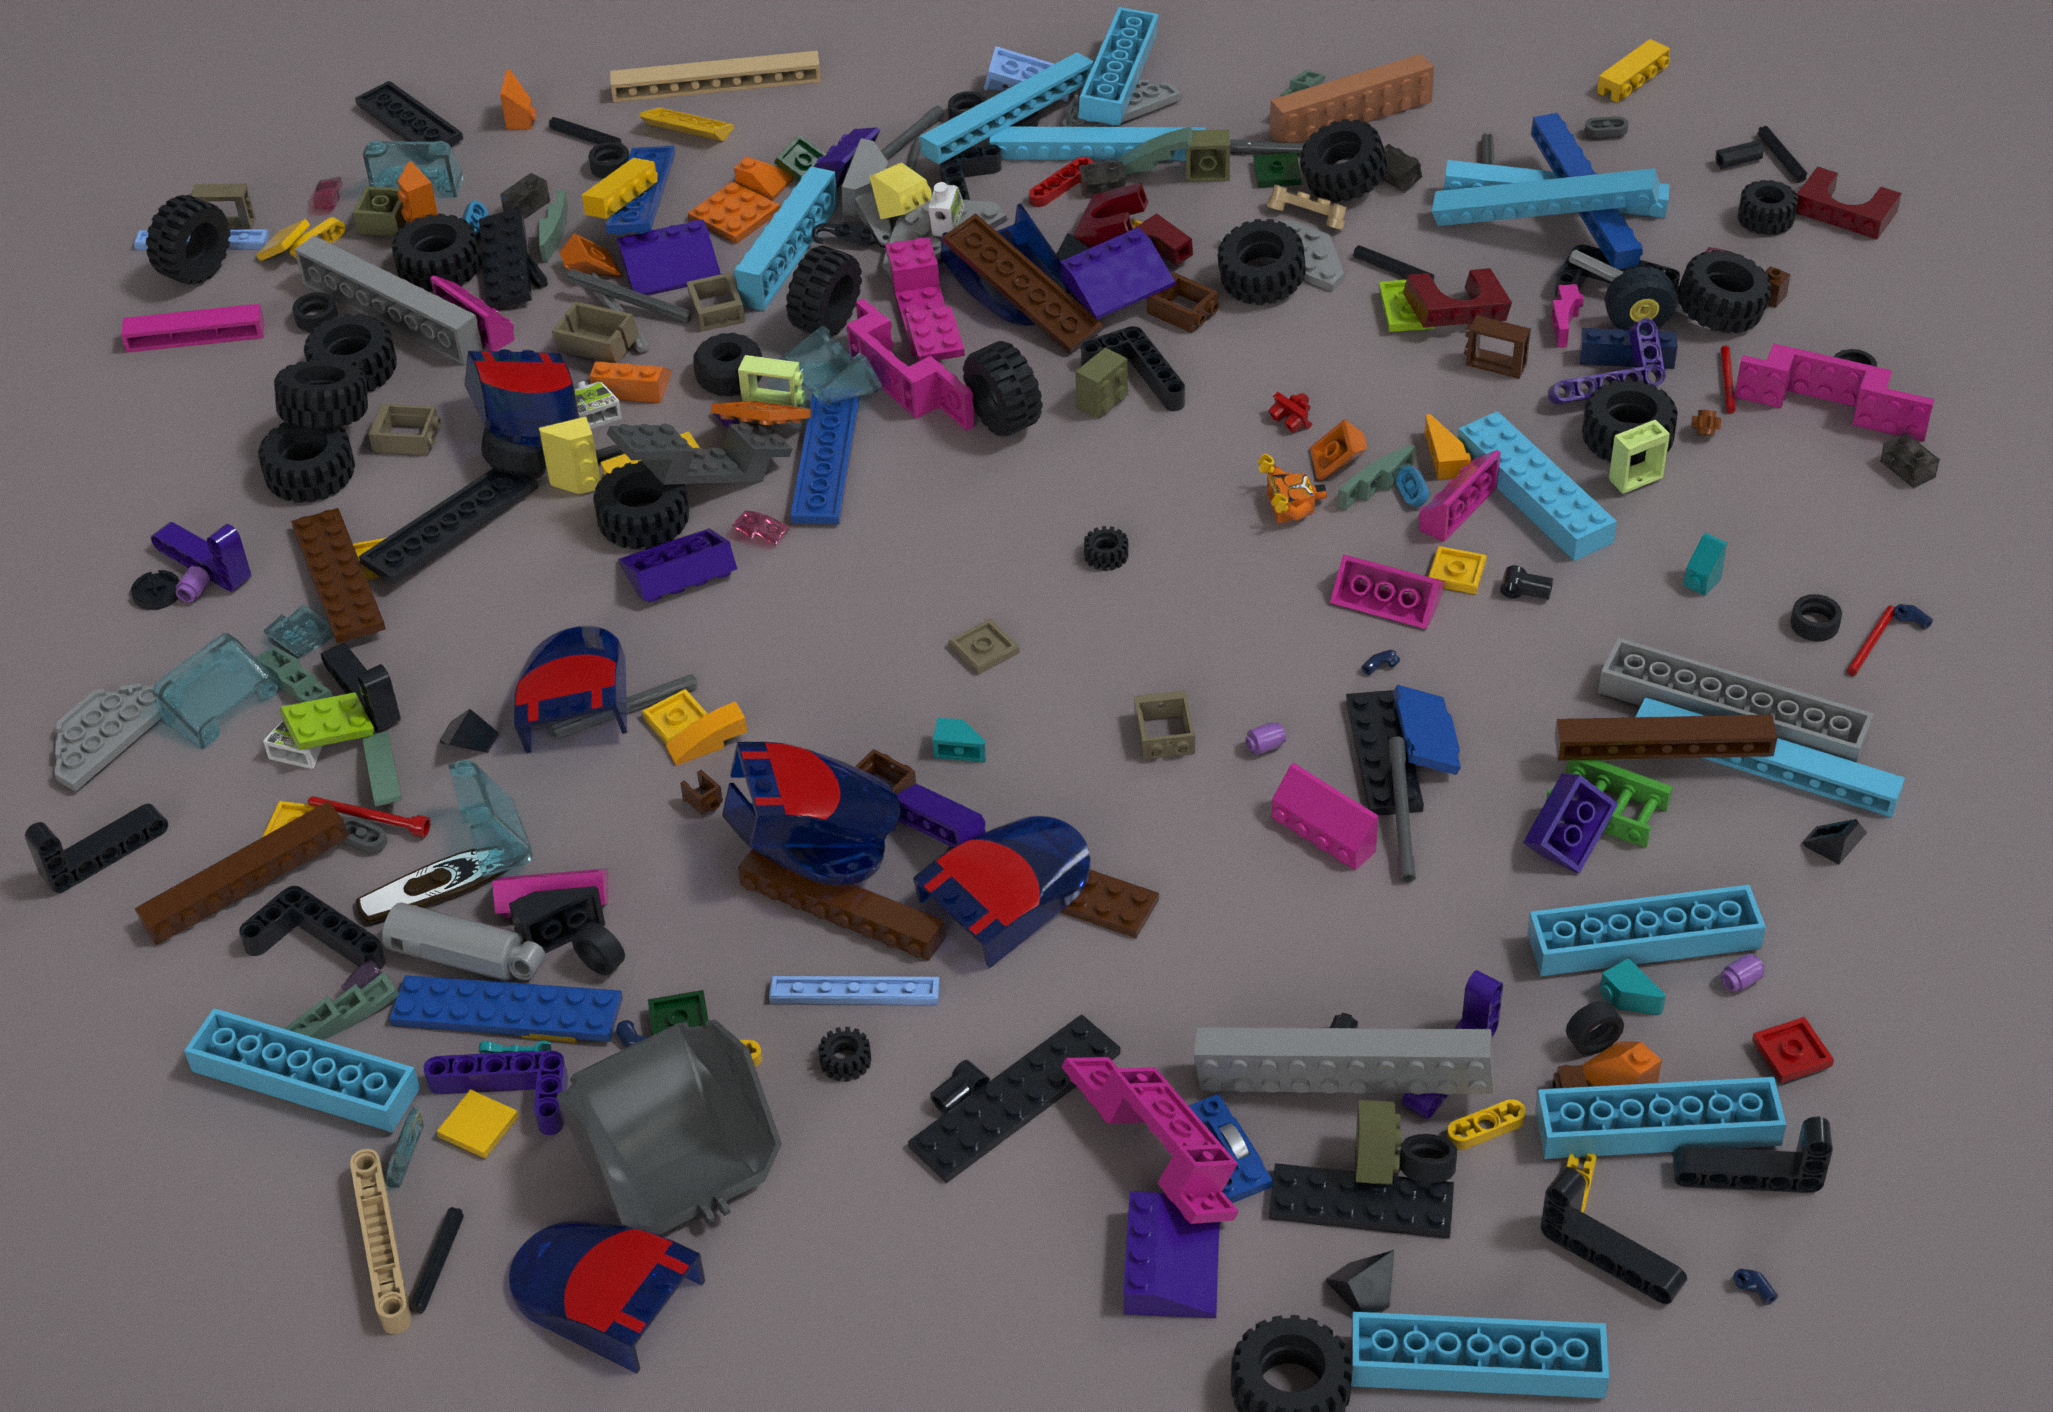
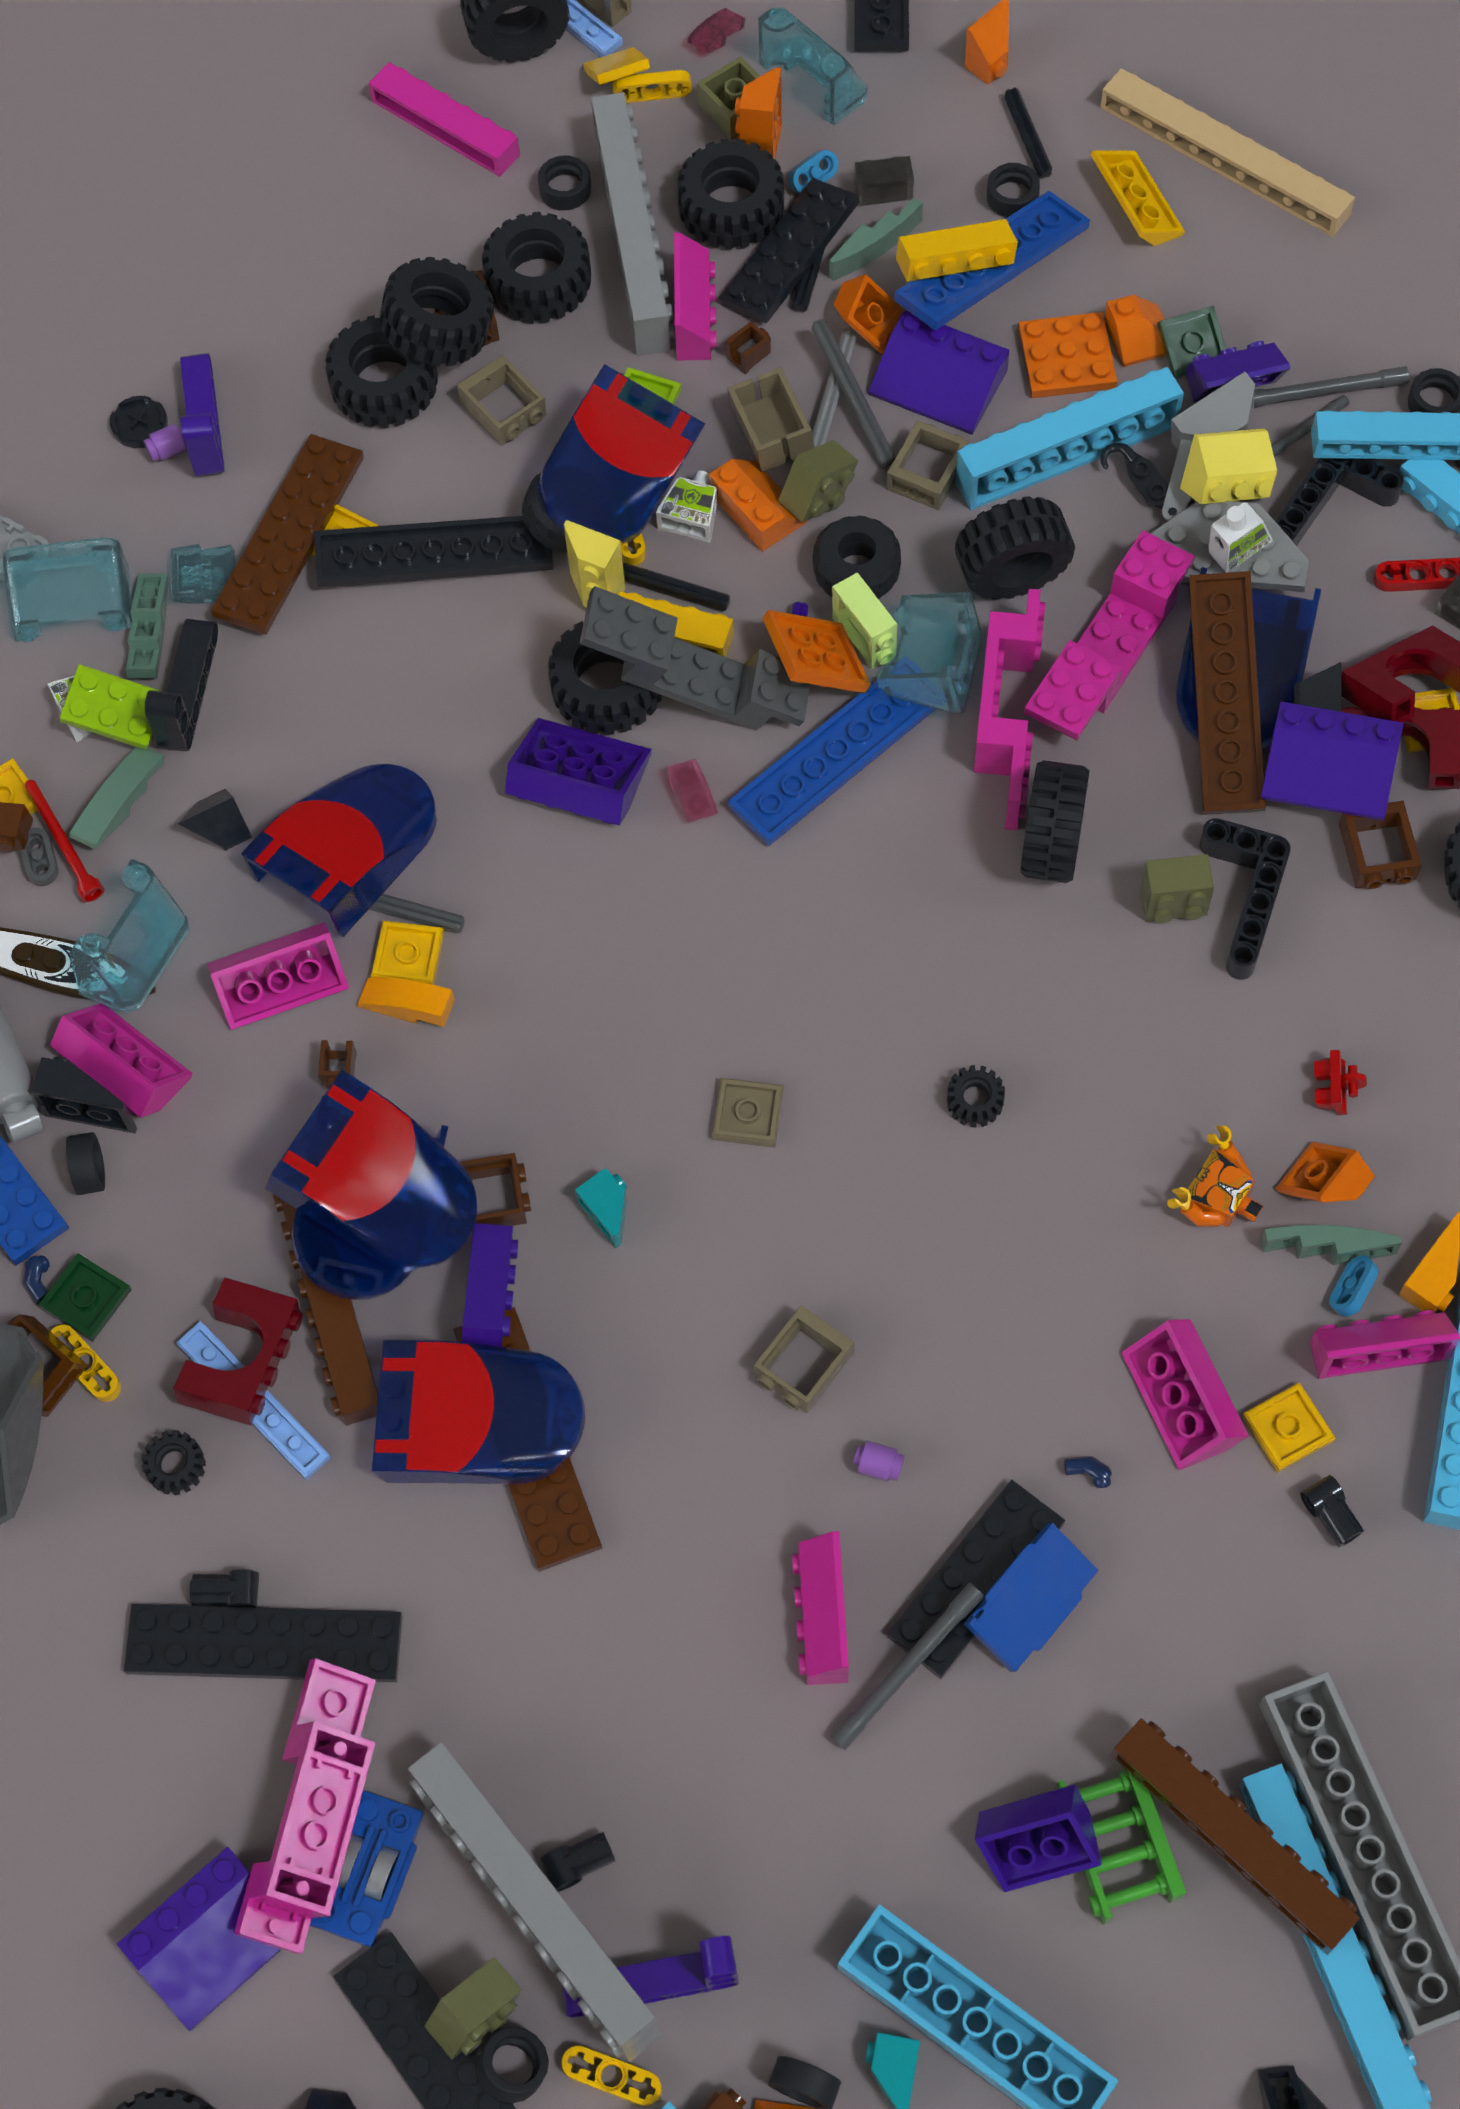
camera: 45 degrees right, 20 degrees up
(535, 315) = (748, 347): none -> reddish brown window
(606, 779) = (277, 975): none -> dark pink slope
(664, 338) = (818, 481): none -> olive brick
(815, 939) = (241, 1392): none -> dark red arch

